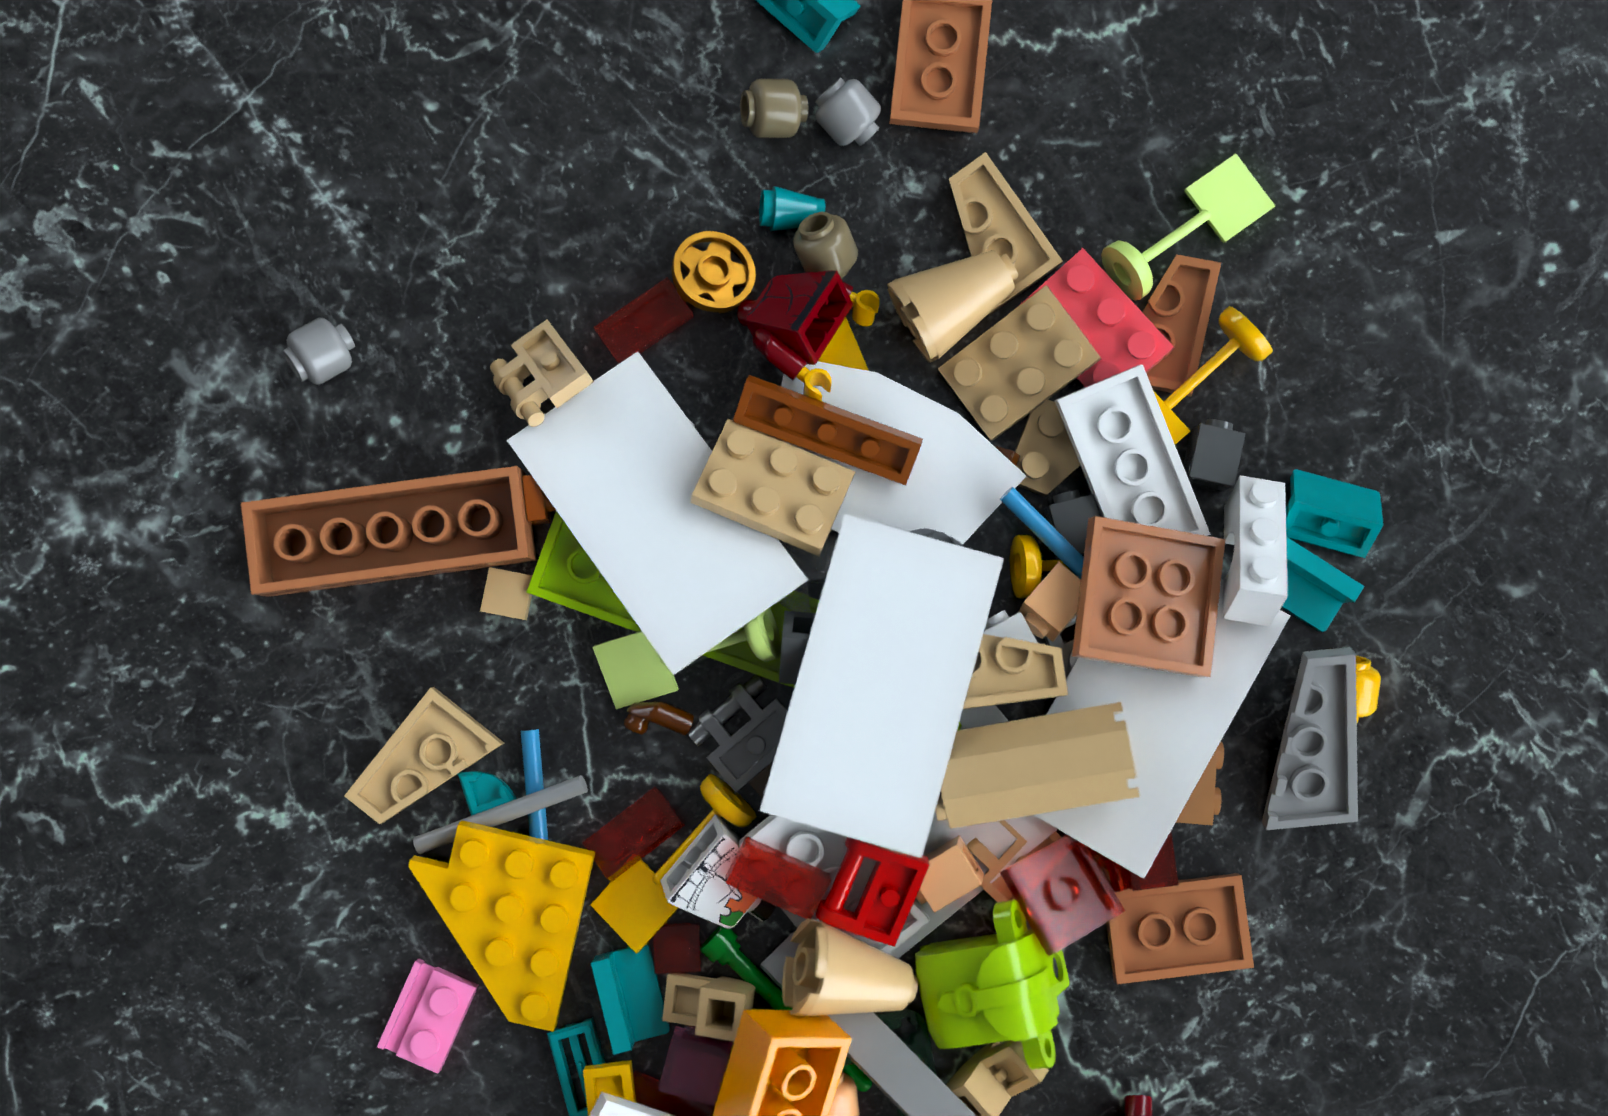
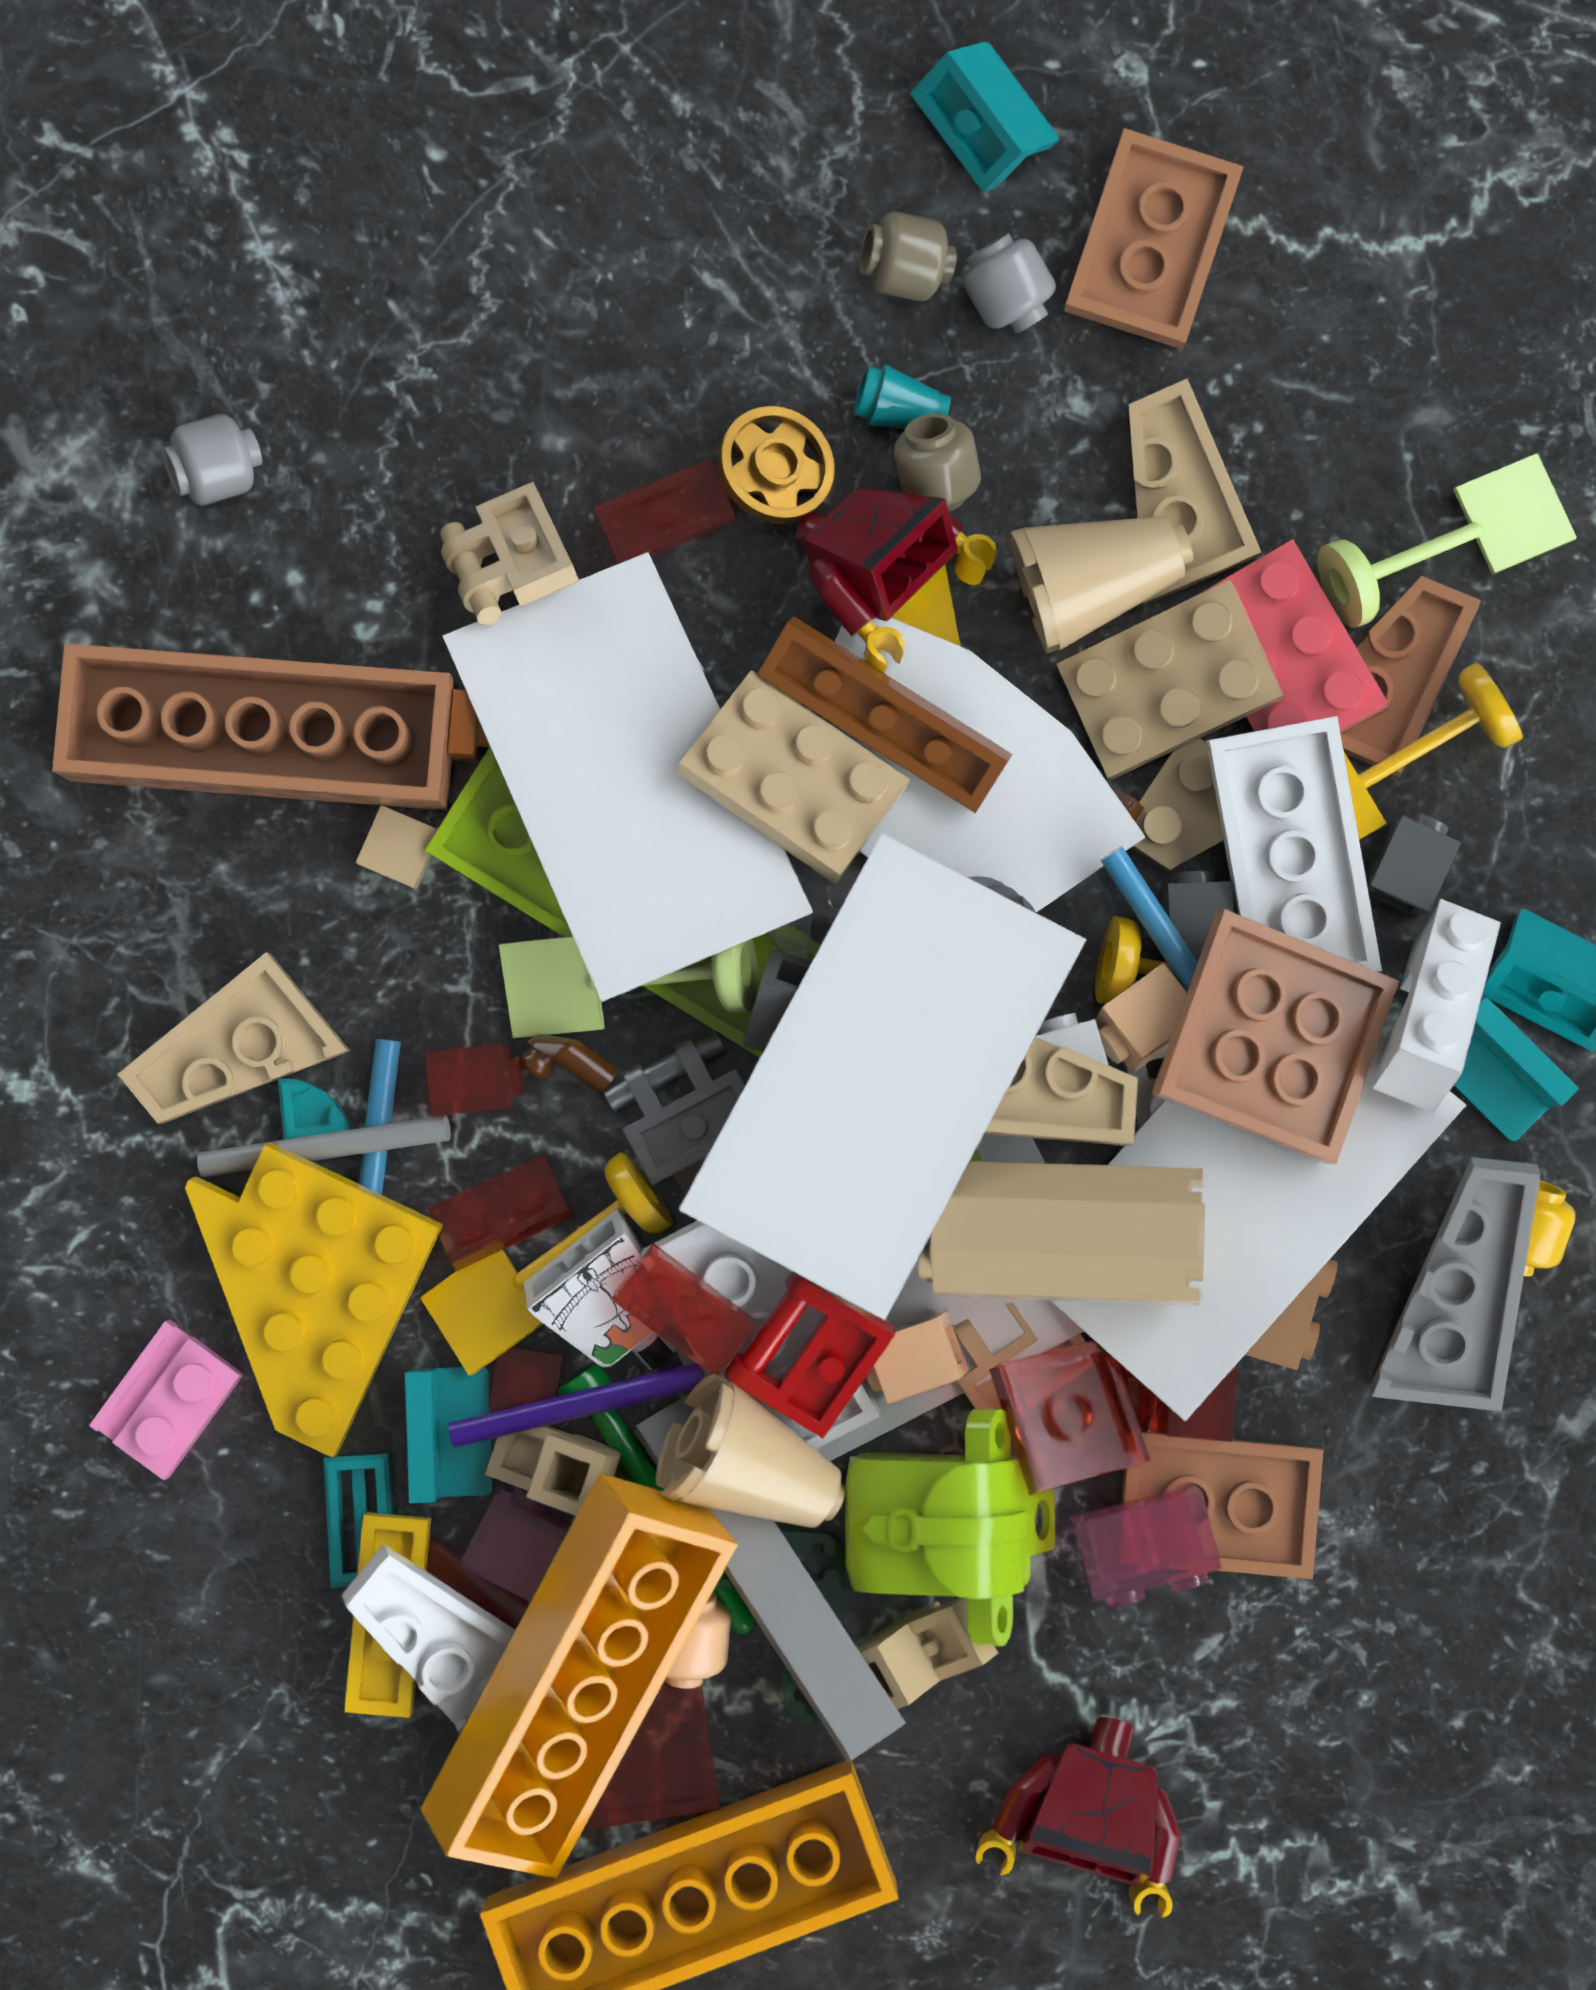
camera: 20 degrees right, 0 degrees up
(594, 746) = (473, 1080): none -> clear red brick
(714, 959) = (575, 1405): none -> dark purple bar
(1135, 971) = (1146, 1546): none -> clear pink brick

